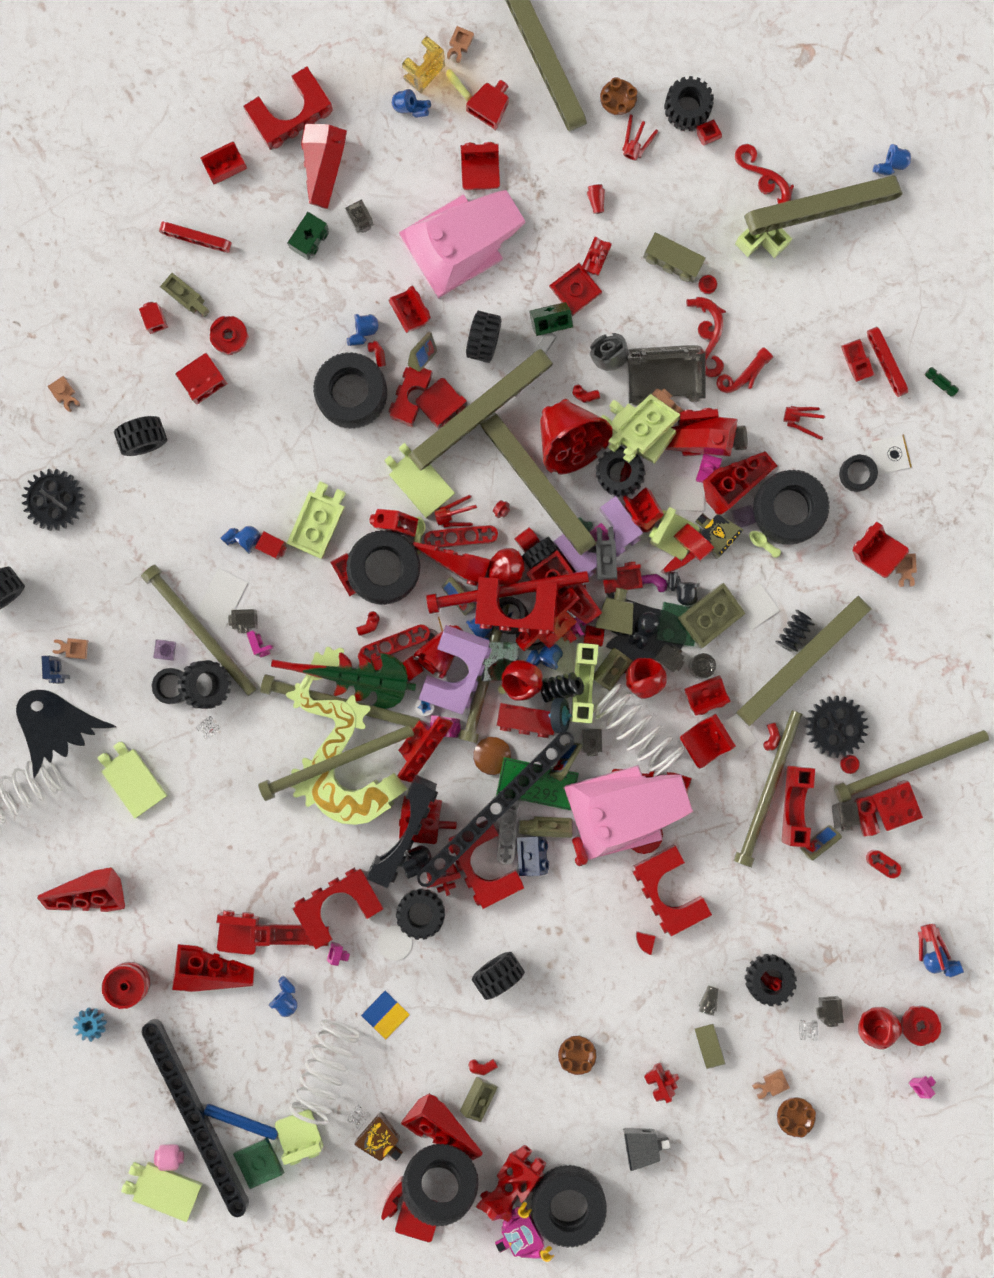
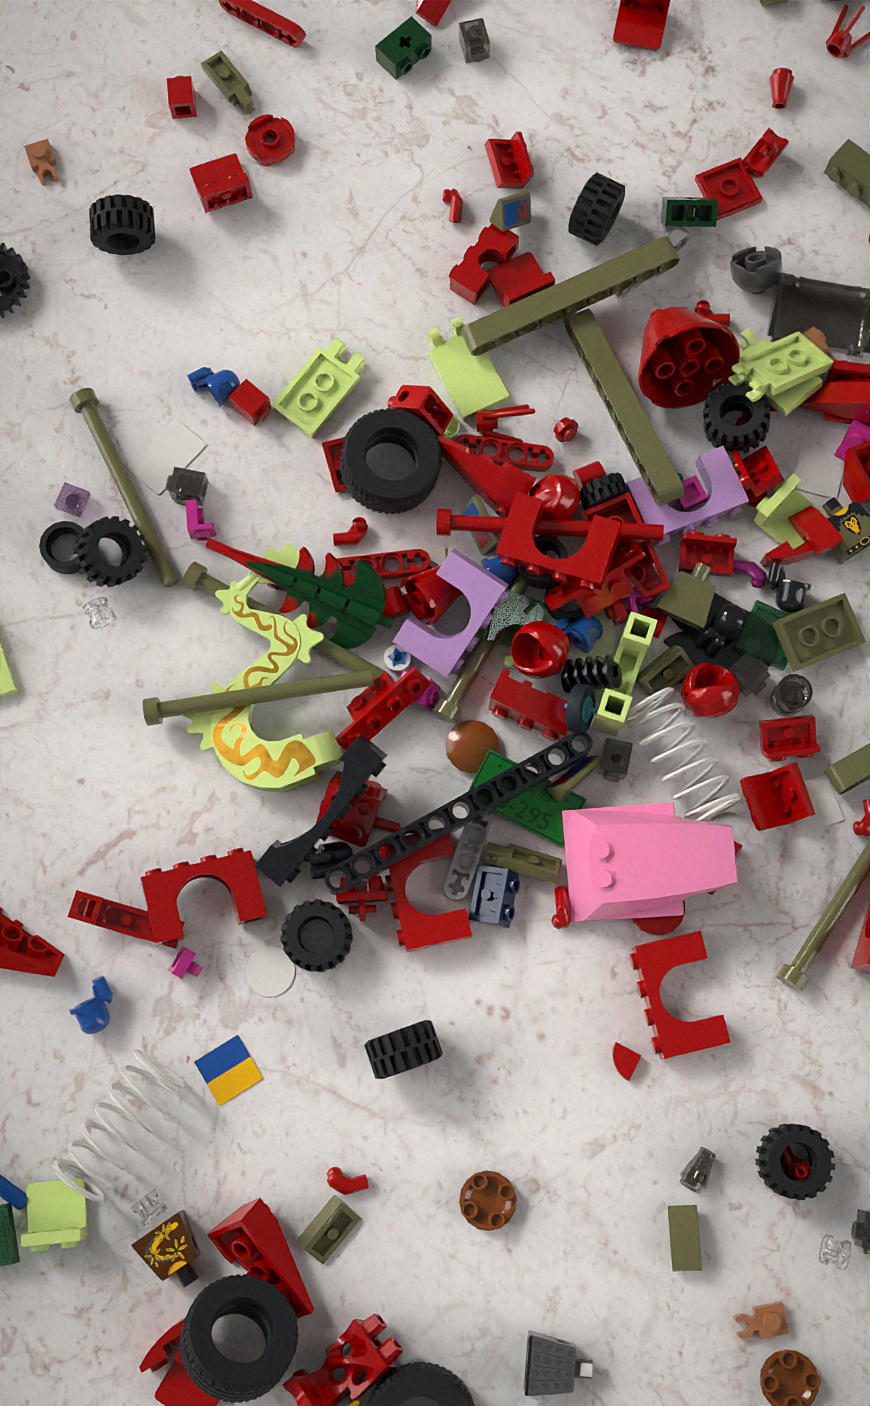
camera: 15 degrees right, 10 degrees down
(235, 932) = (53, 895): red bracket -> none
(343, 365) = (401, 206): black tyre -> none
(365, 326) = (447, 168): blue piece -> none
(462, 239) = (597, 96): bright pink wedge -> none
(606, 556) = (693, 515): dark grey hinge -> none
(665, 1082) = (606, 1275): red hips -> none

